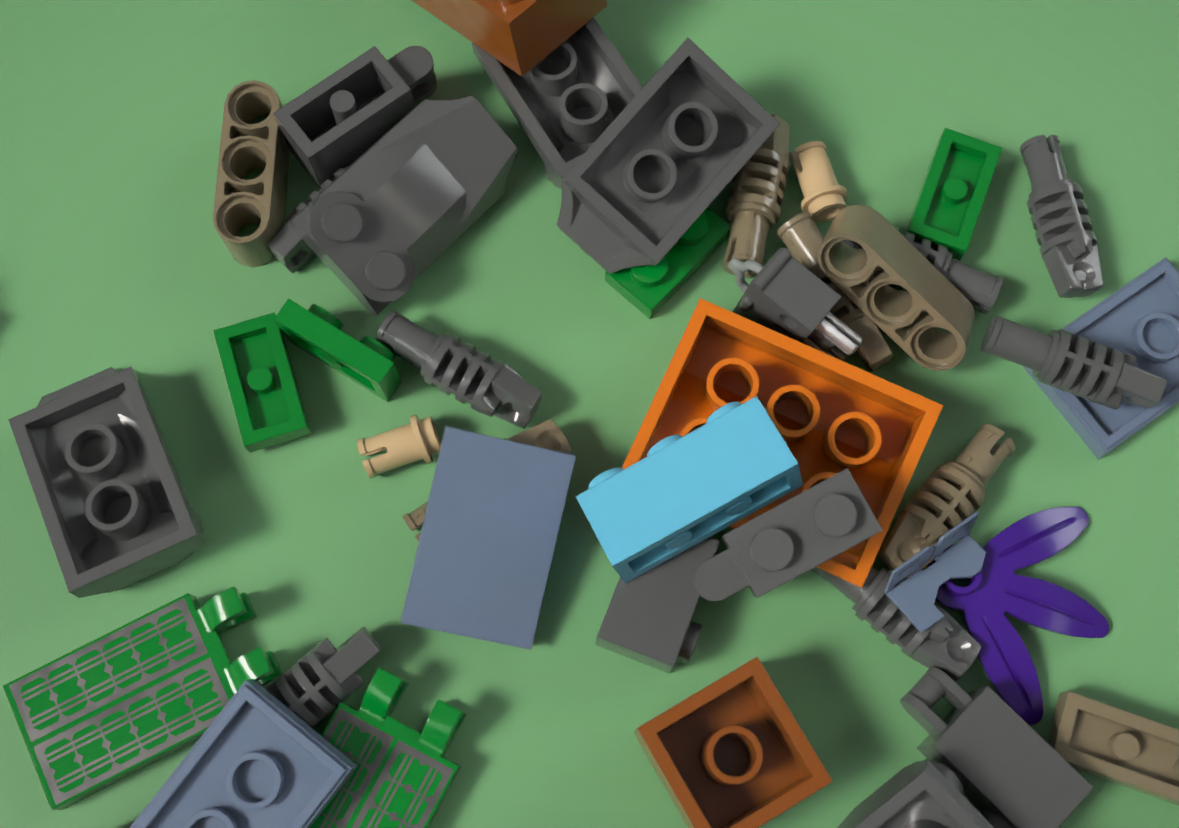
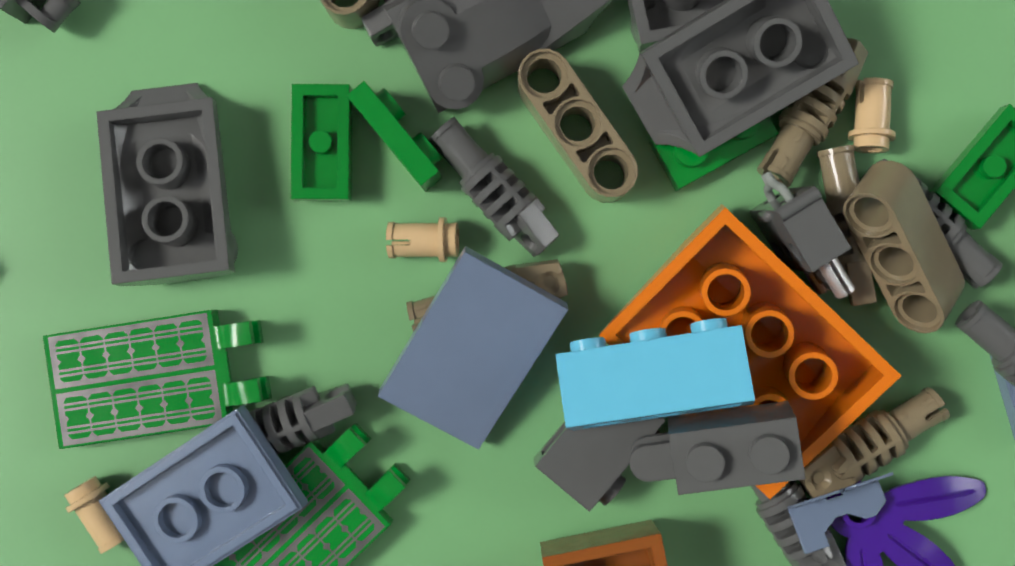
camera: 25 degrees right, 15 degrees up
(512, 257) = (574, 99): none -> dark tan beam

